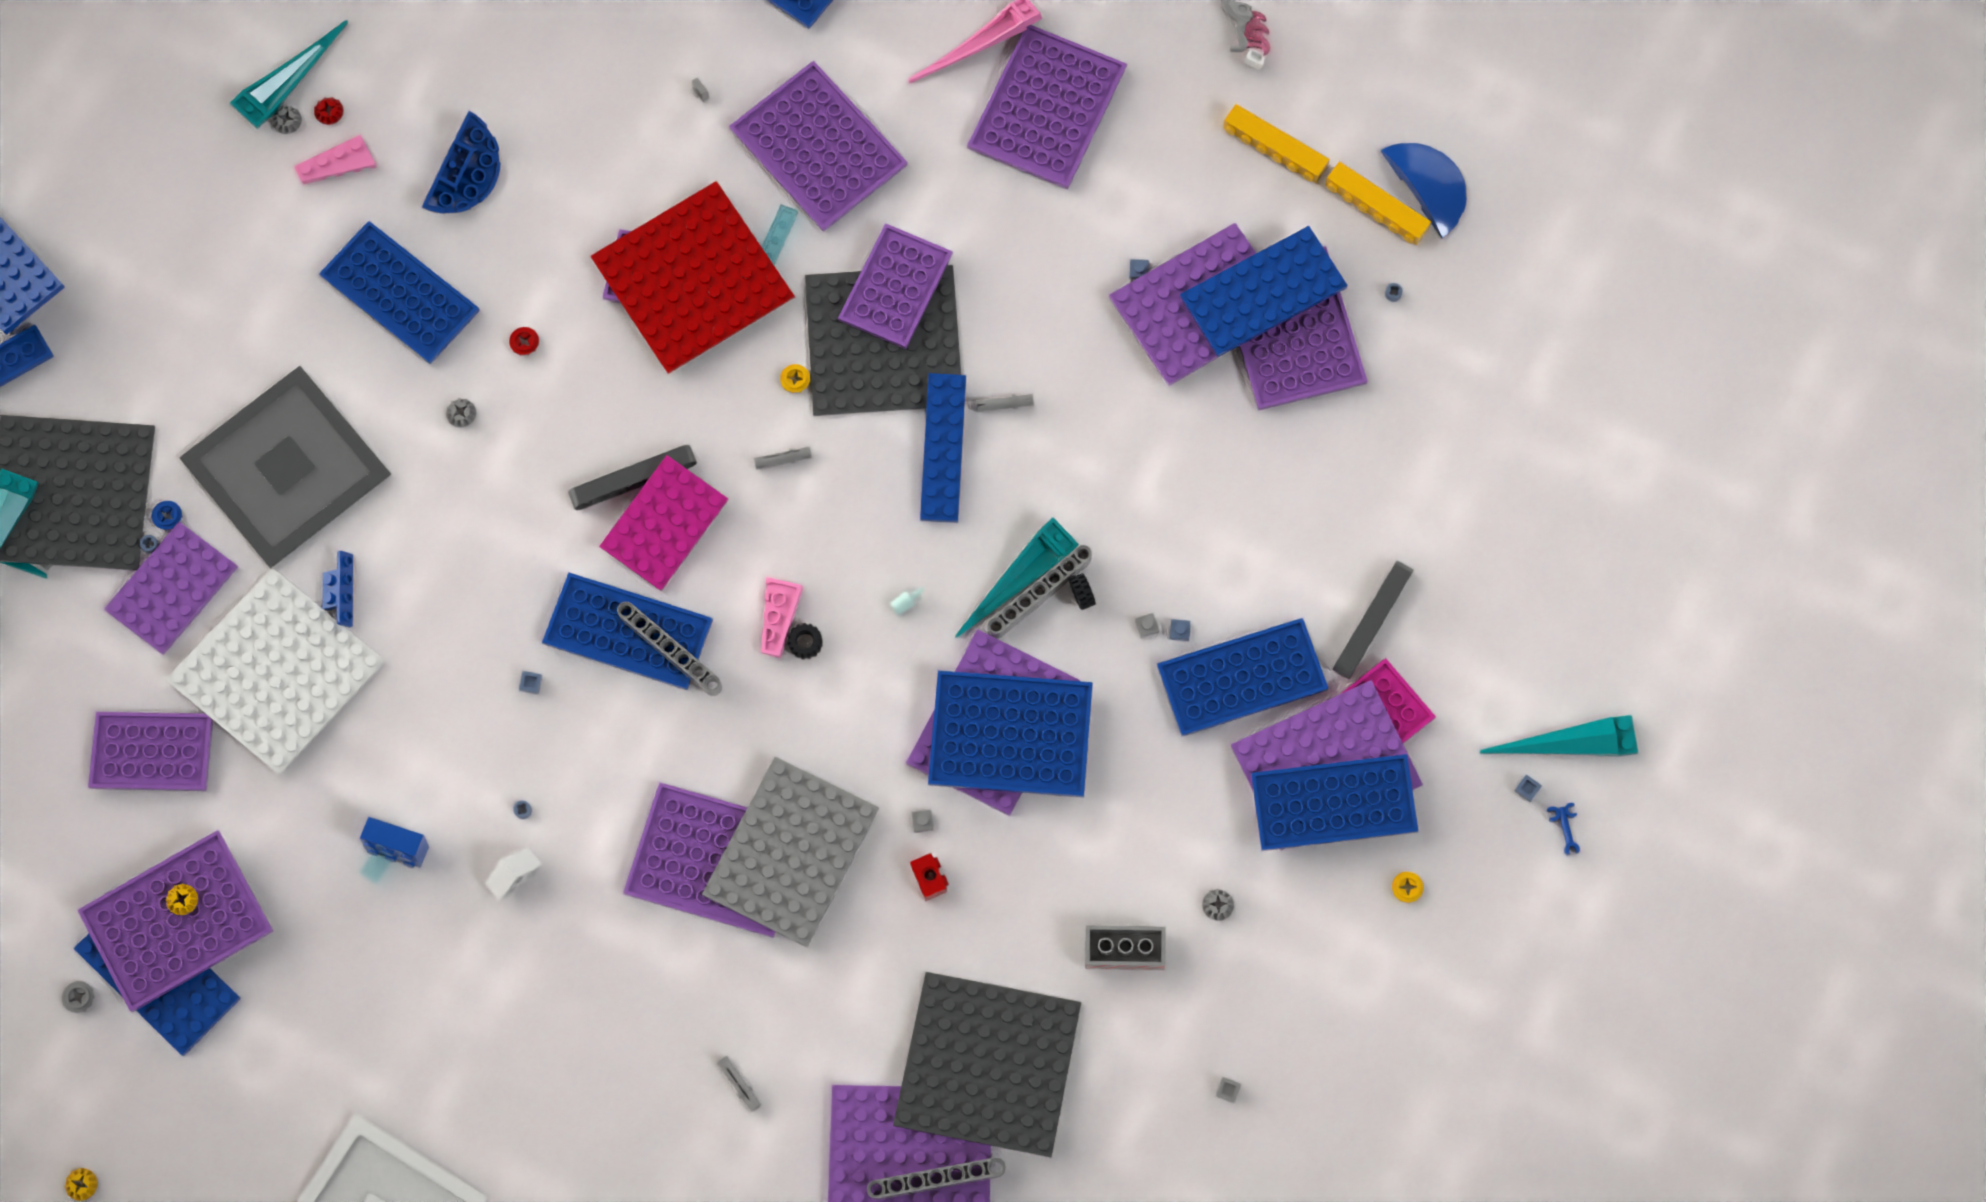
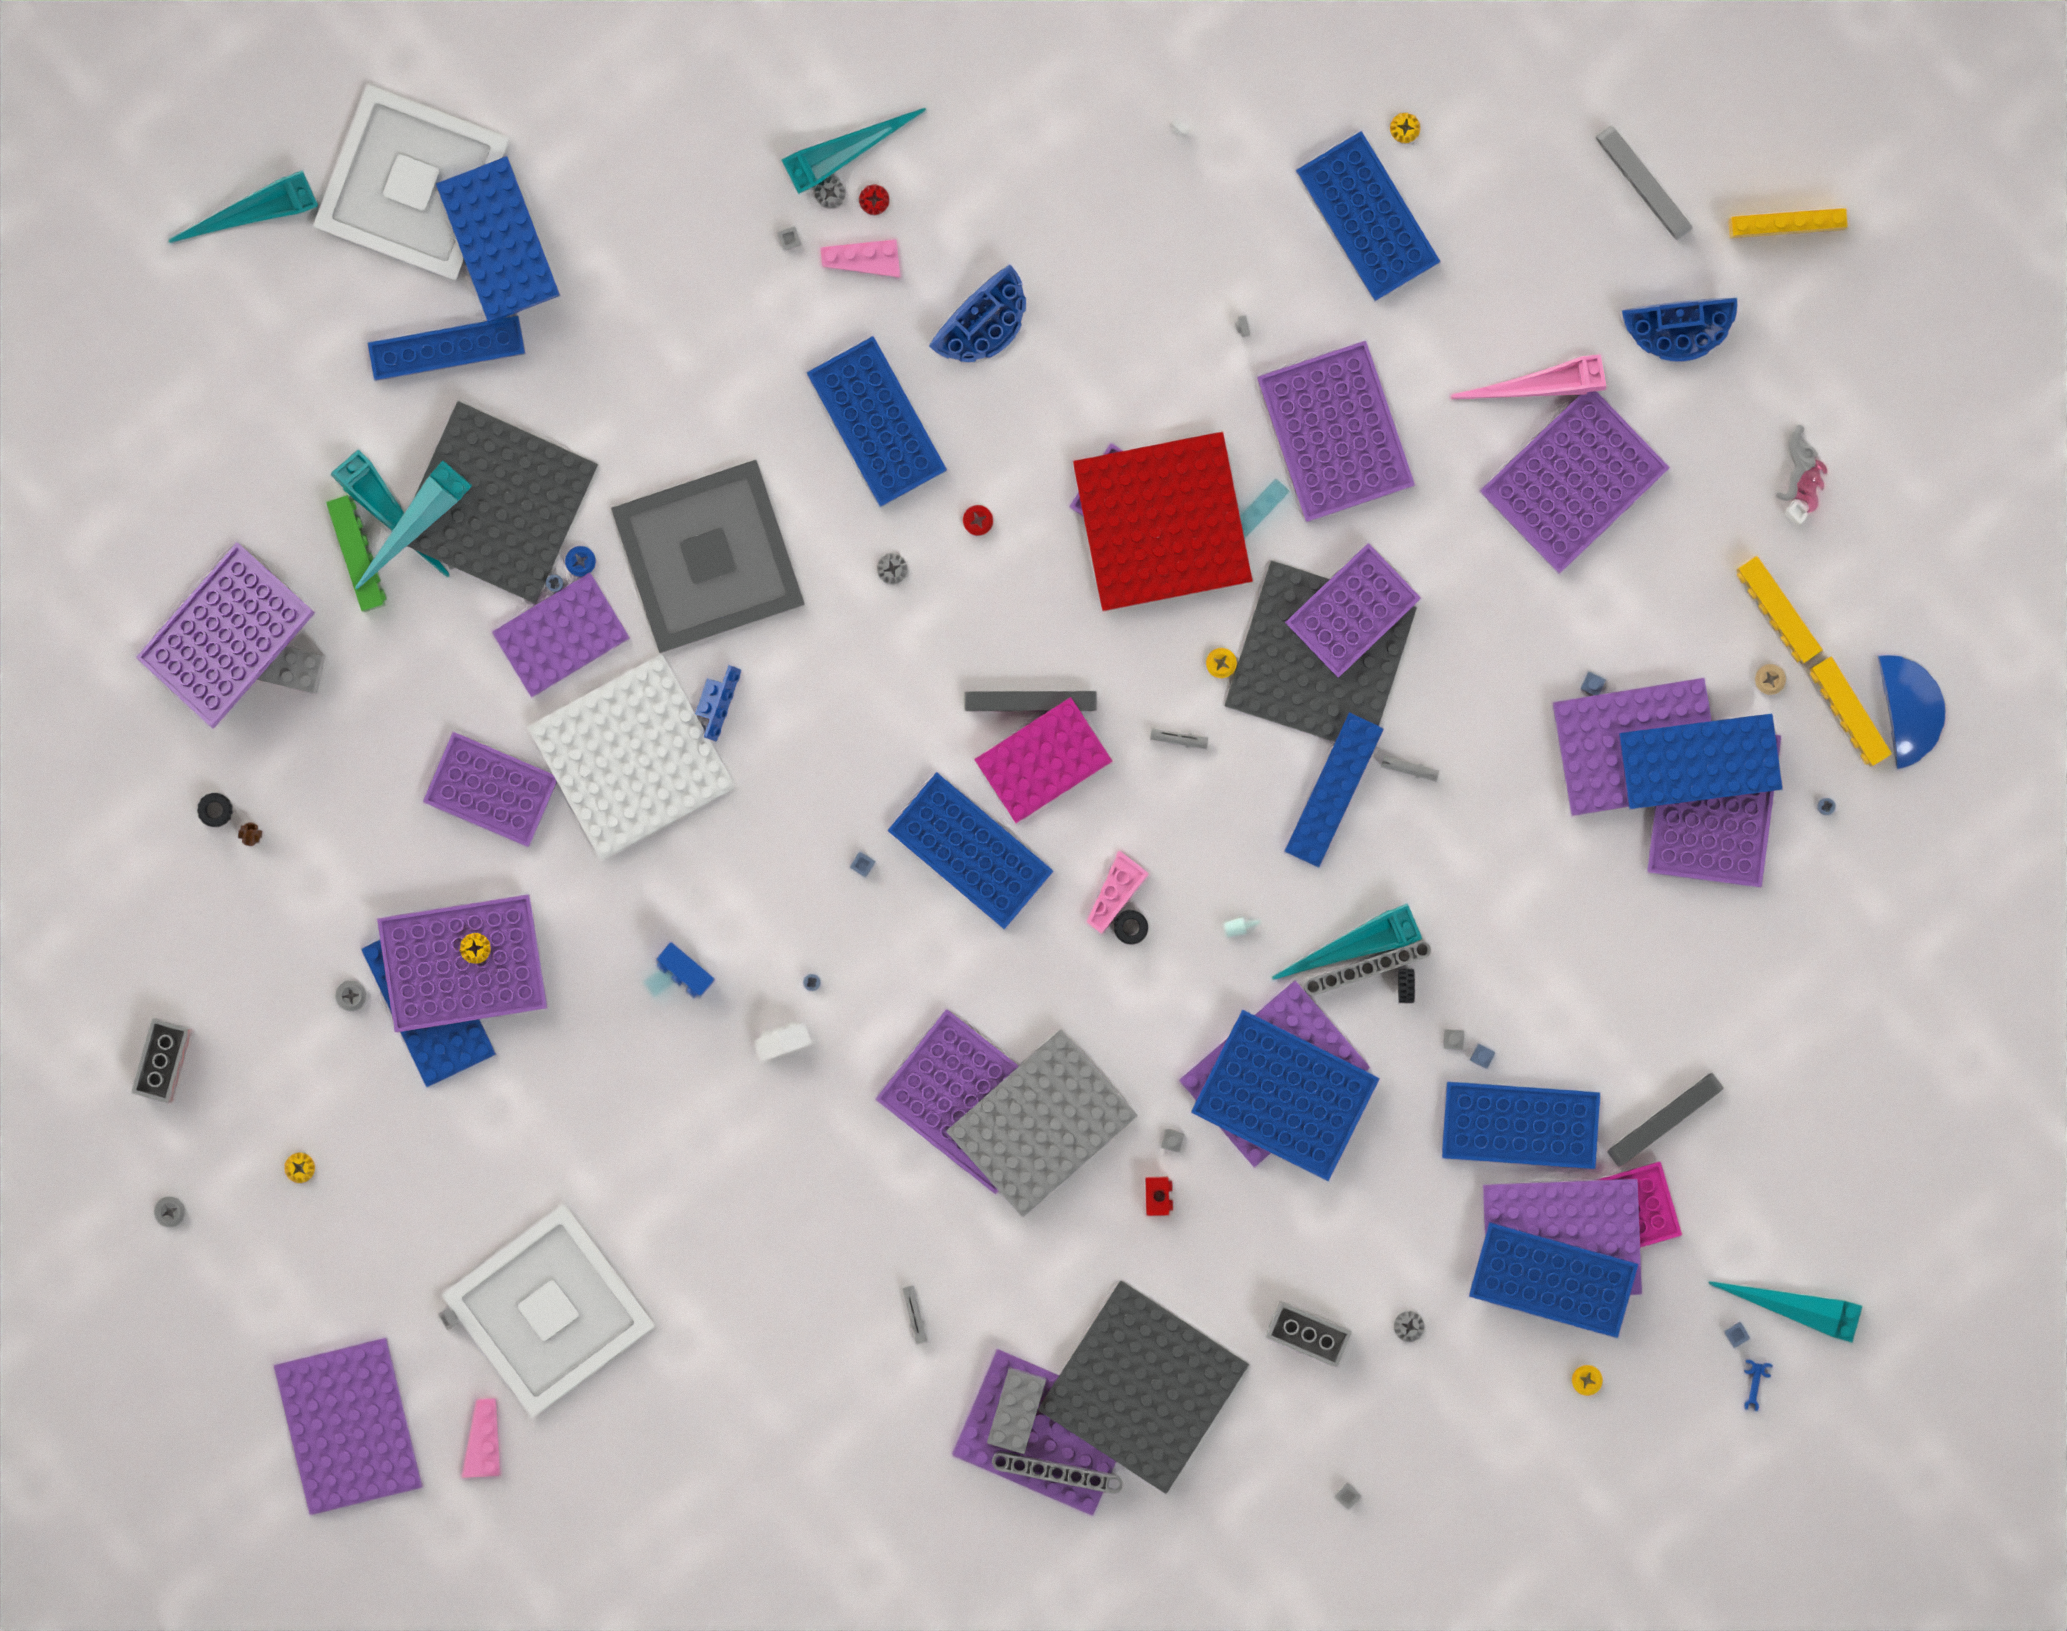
camera: 20 degrees right, 15 degrees up
(263, 169) = (789, 238): none -> light grey plate
(665, 640) = (1001, 877): light grey beam -> none
(872, 1133) = (1016, 1410): none -> light grey brick
(1294, 197) = (1778, 683): none -> tan gear

